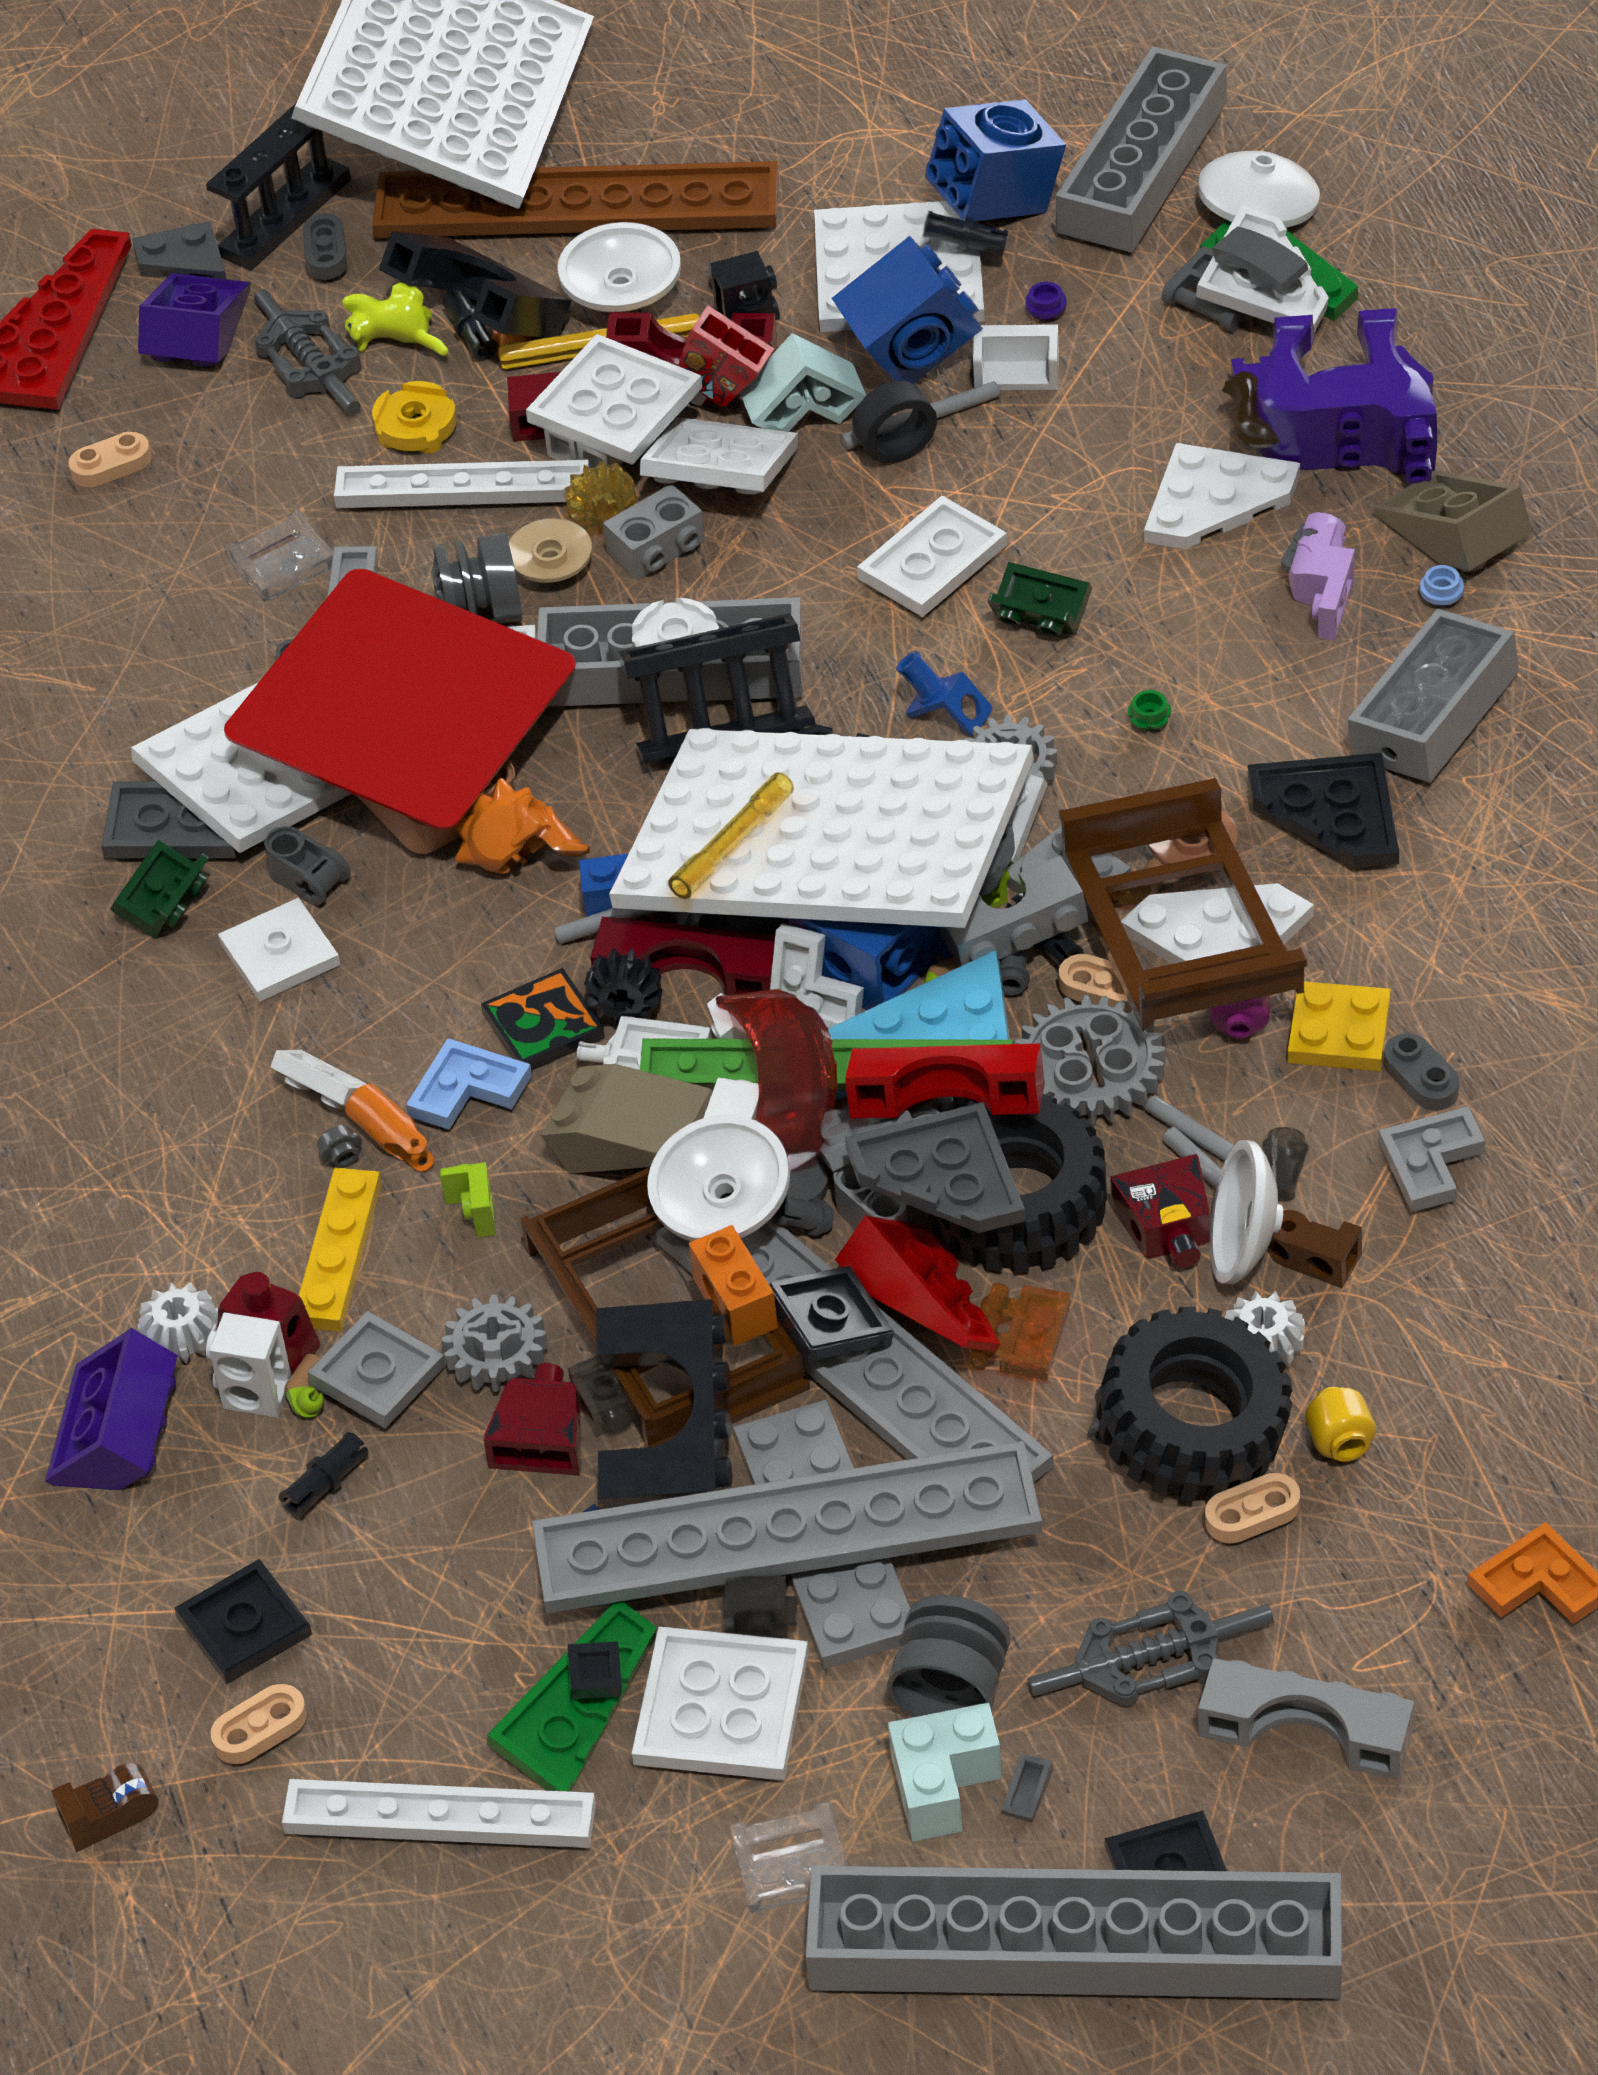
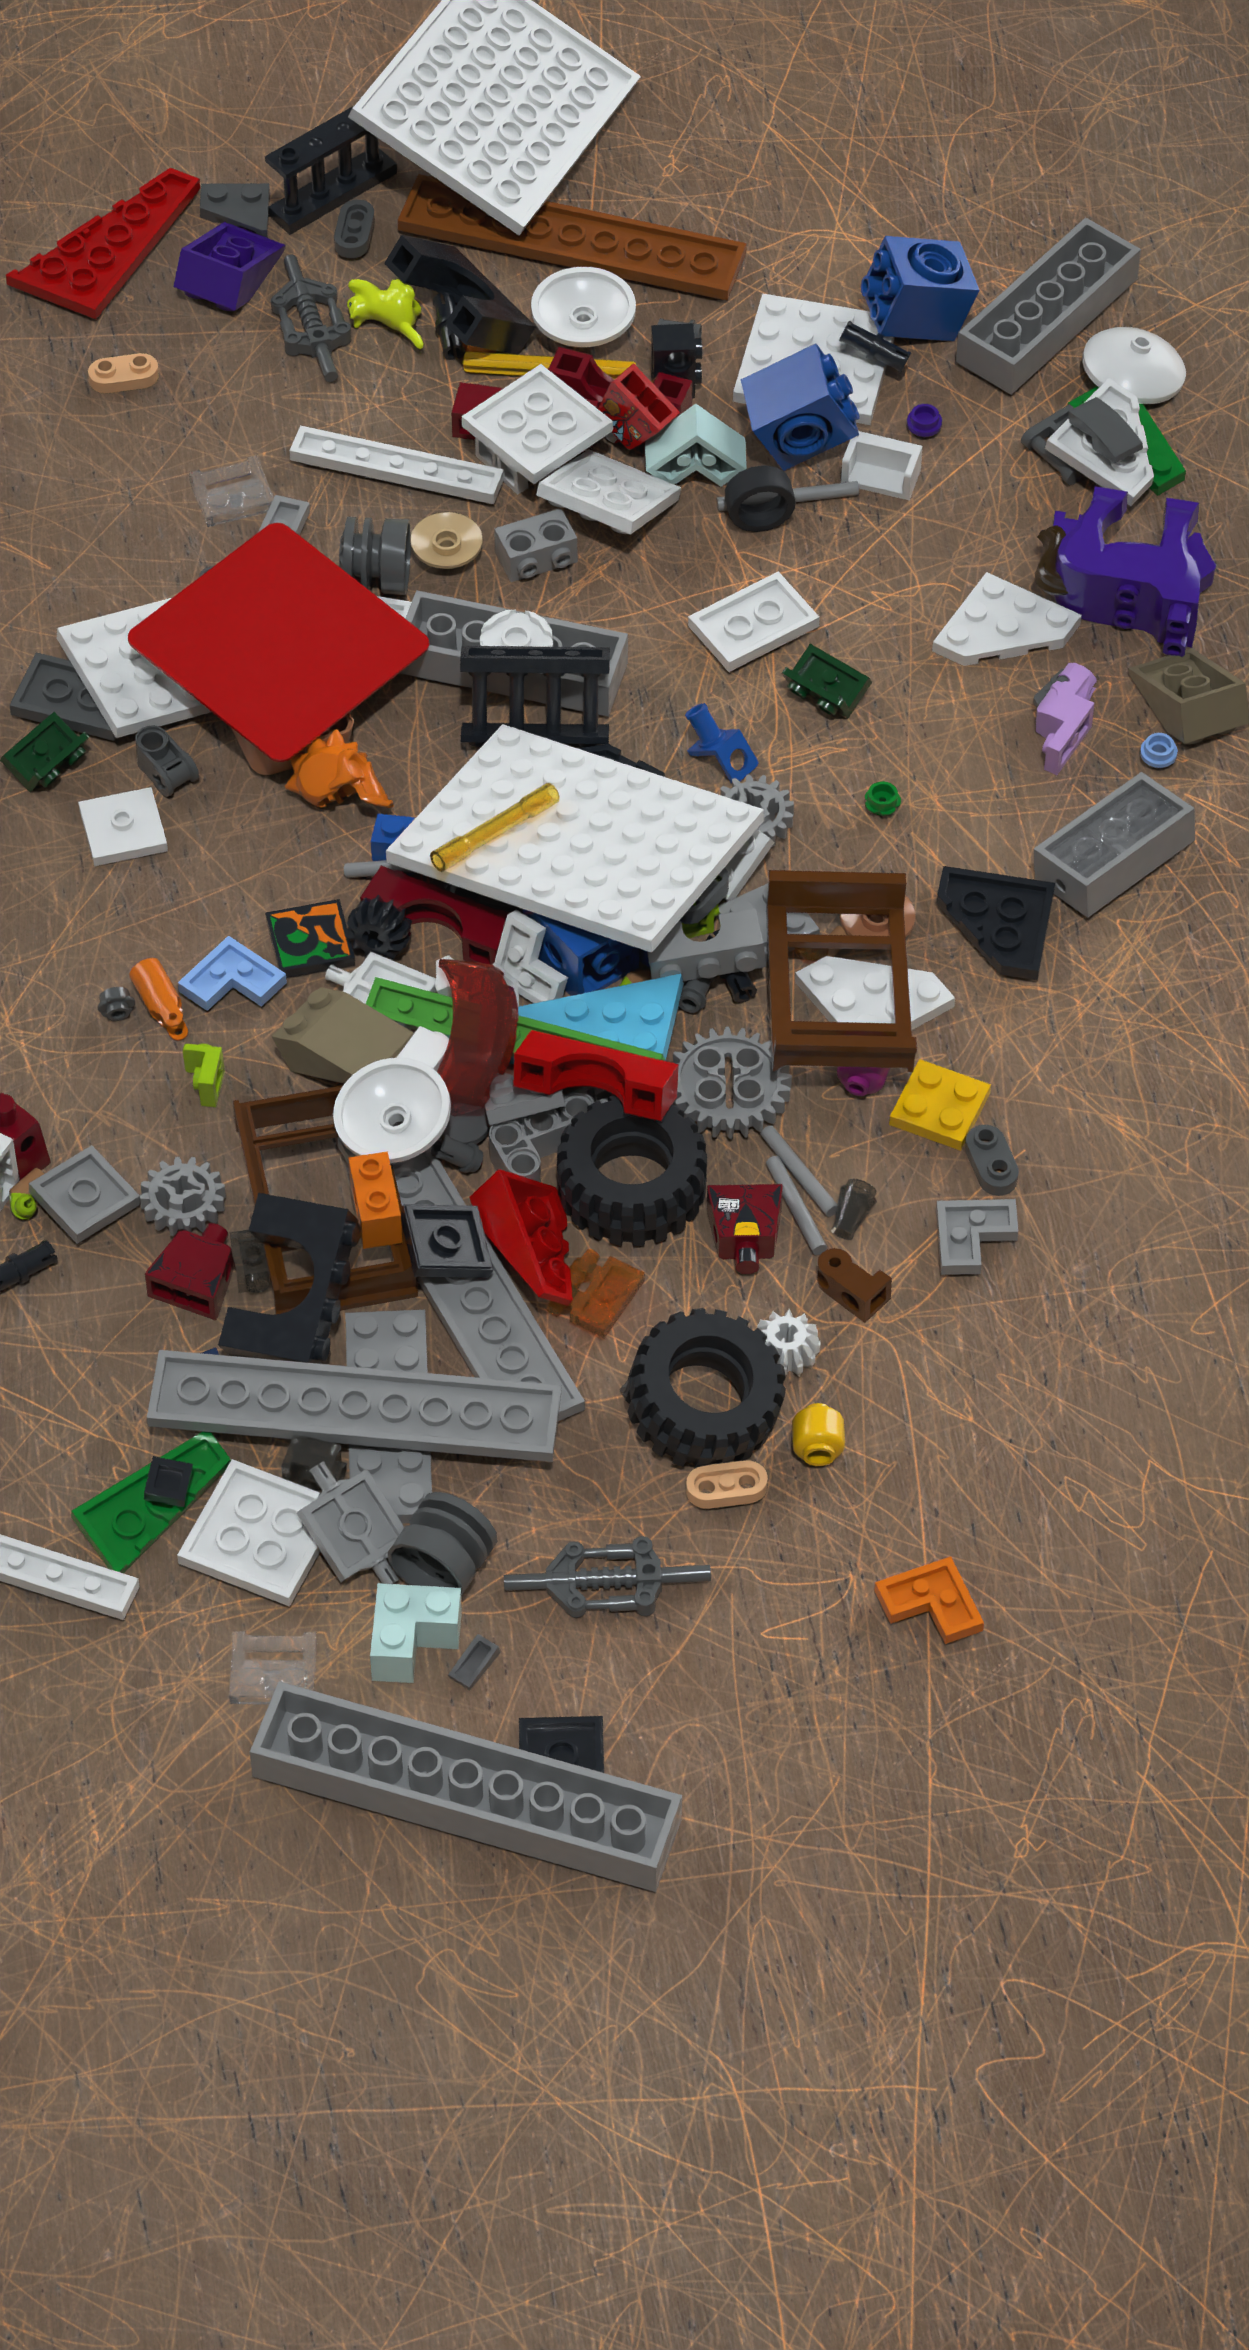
camera: 10 degrees right, 5 degrees up
(312, 1073) = (114, 937): white plate -> none
(339, 1246) = (89, 1086): yellow plate -> none
(424, 434) = (380, 412): yellow plate -> none
(599, 495) = (500, 503): clear yellow gear -> none
(832, 1664) = (352, 1524): none -> light grey plate
(941, 1166) = (568, 1145): dark grey plate -> none
(1097, 975) = (755, 1006): light nougat plate -> none
(1243, 1213) = (801, 1244): white dish -> none
(1249, 1700) = (664, 1639): light grey arch -> none

